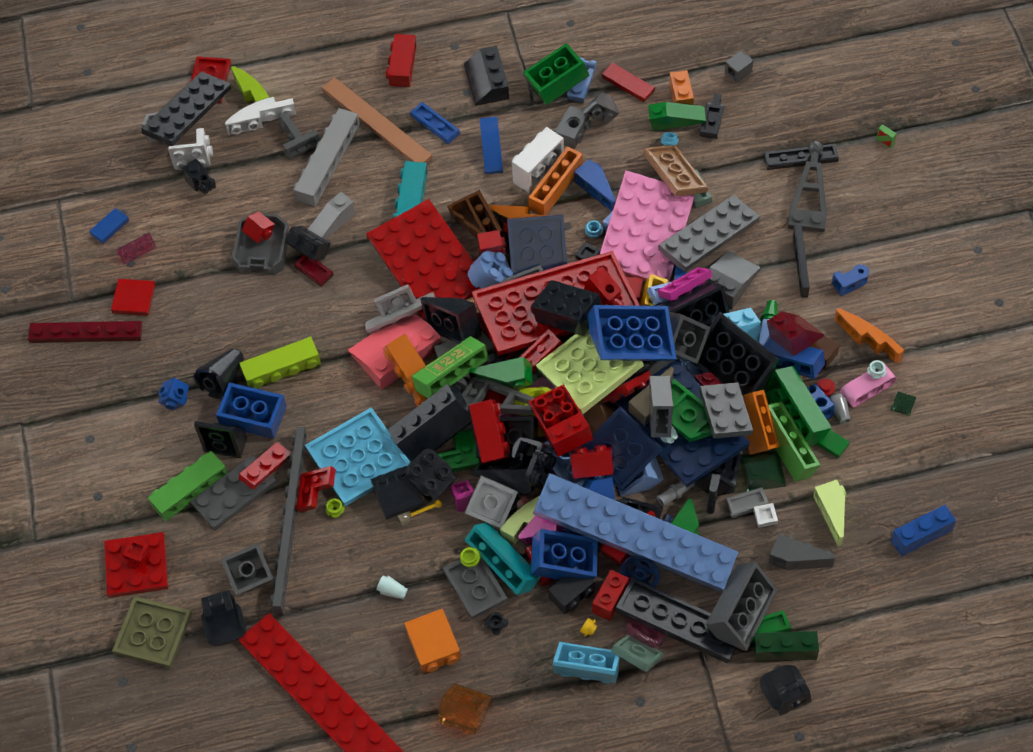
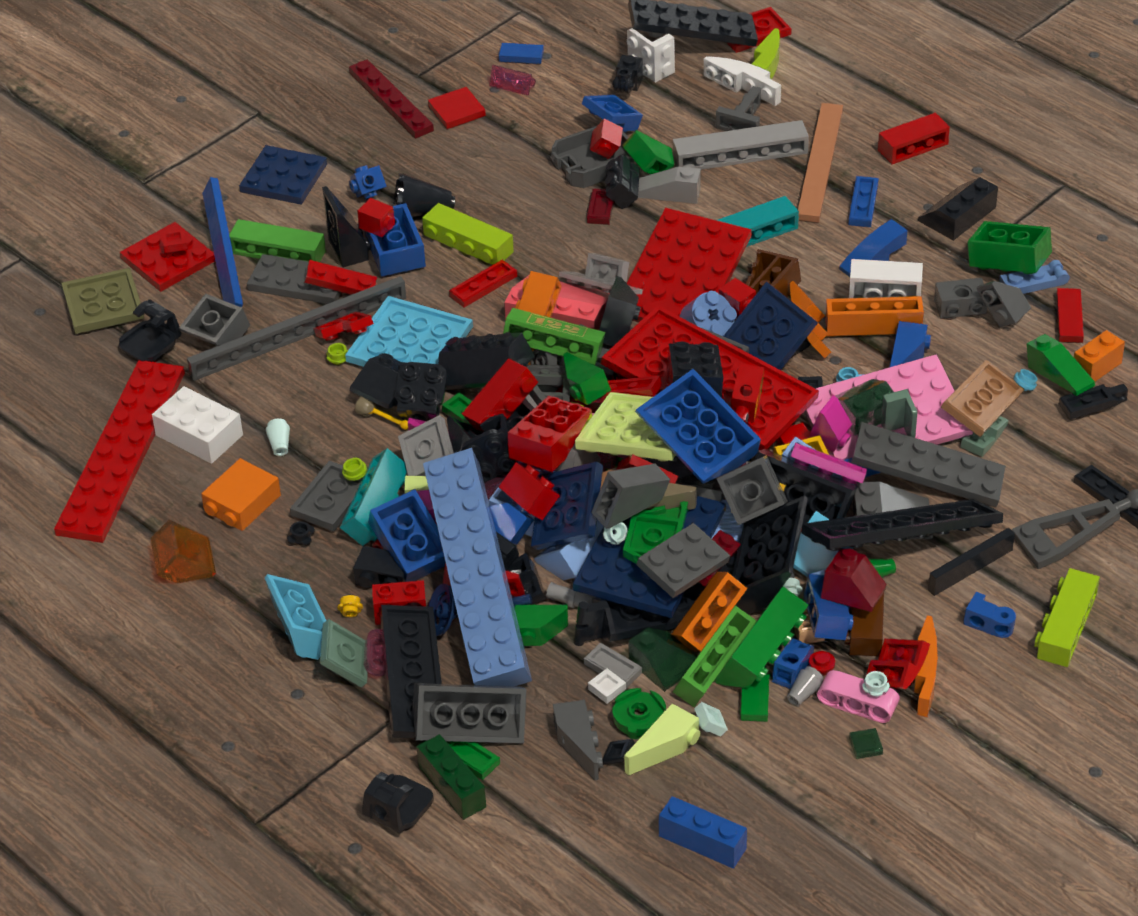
camera: 55 degrees right, 15 degrees down
(109, 443) = (283, 174): none -> dark blue plate
(165, 523) = (221, 243): none -> blue tile
(232, 206) = (613, 110): none -> blue plate
(238, 408) = (376, 217): none -> red brick
(297, 211) = (649, 153): none -> green slope
(333, 381) = (483, 283): none -> red tile
(341, 633) = (197, 424): none -> white brick
(641, 232) = (864, 403): none -> clear green slope
(649, 263) = (832, 425): none -> dark pink slope
(674, 217) = (899, 412): none -> sand green panel
(761, 277) = (901, 524): none -> black plate
(799, 520) = (634, 699): none -> green plate
(823, 539) = (617, 750): none -> black slope
(833, 473) = (710, 719): none -> light aqua plate
(862, 349) = (900, 661): none -> red slope
(880, 241) = (1067, 617): none -> lime brick

